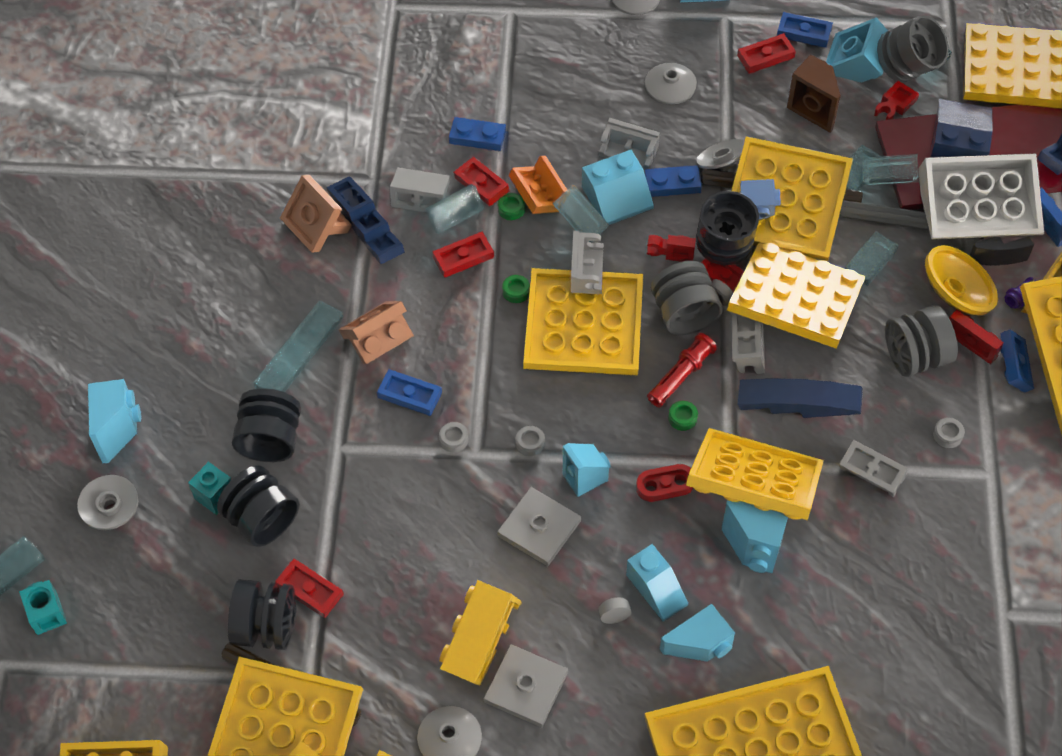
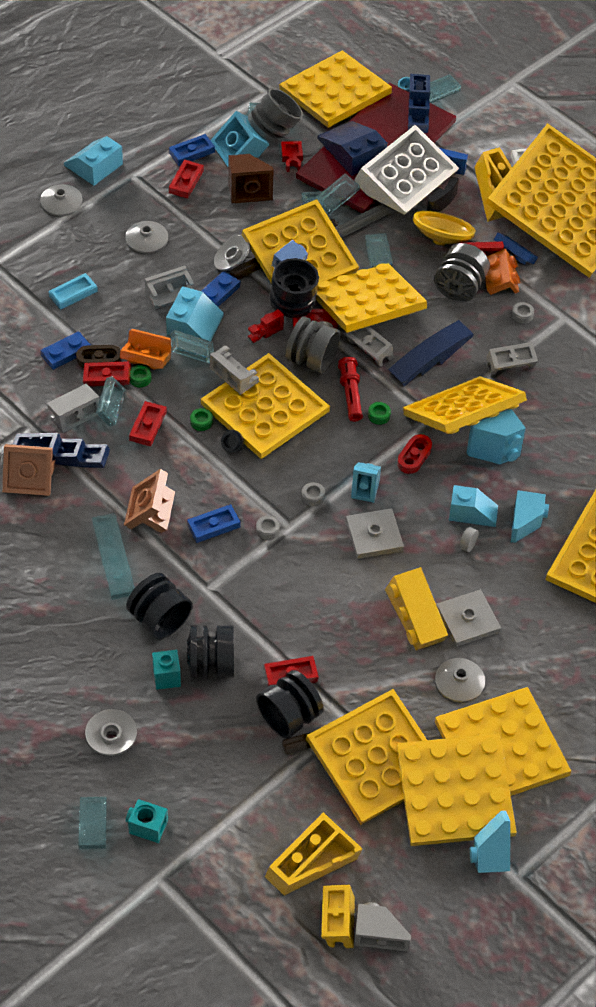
camera: 50 degrees left, 5 degrees down
(111, 417) = (51, 681): medium azure slope -> none
(497, 159) = (97, 354): none -> dark brown plate
(514, 330) = (232, 441): none -> black plate
(546, 85) = (73, 291): none -> medium azure tile
(972, 374) = (502, 272): none -> orange bracket
(1014, 296) = (477, 212): dark purple pin -> none

